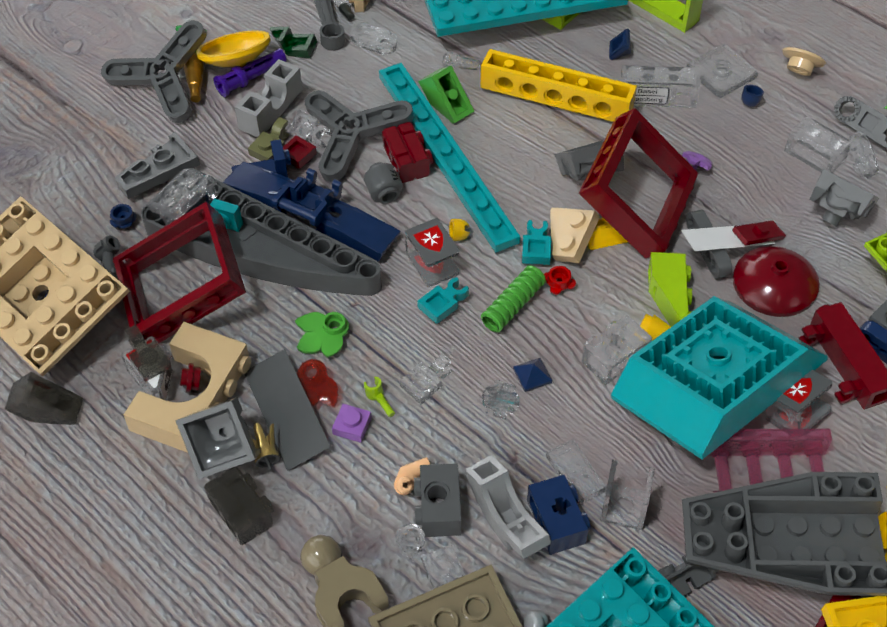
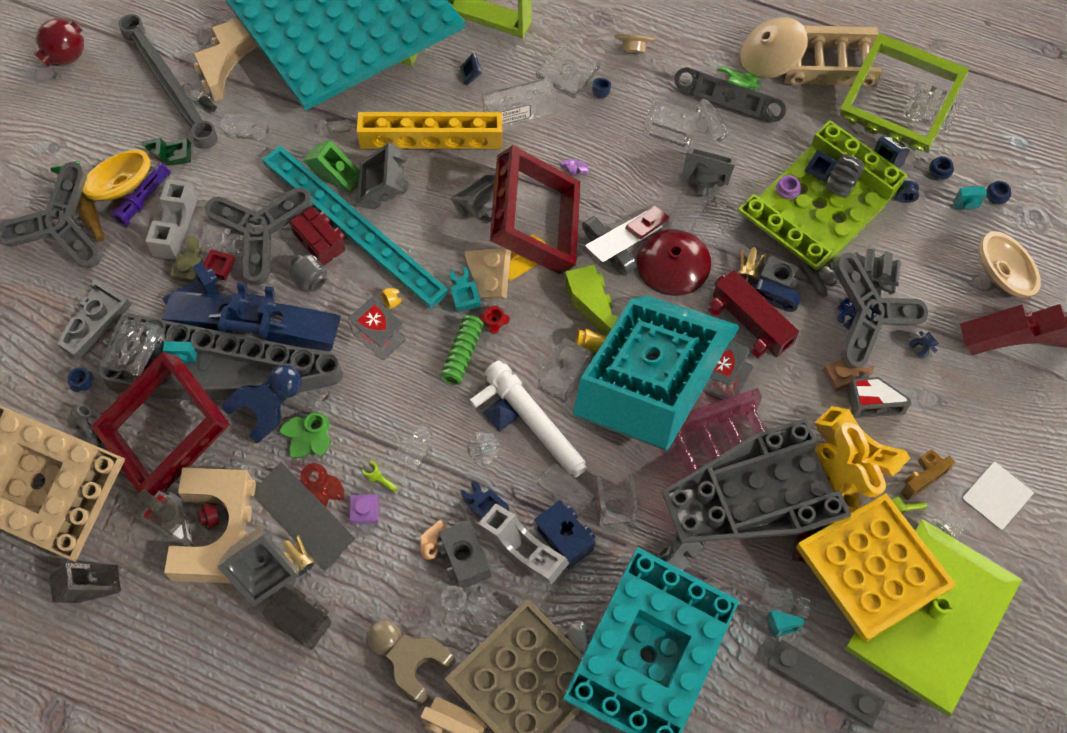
camera: 20 degrees left, 10 degrees up
(291, 283) = (266, 399): none -> dark blue piece
(442, 302) = (401, 373): teal plate -> none
(476, 451) = (482, 502): none -> dark blue plate
(492, 114) = (381, 176): none -> dark grey brick
(551, 350) = (510, 388): none -> white cylinder
(858, 305) = (749, 268): none -> pearl gold piece

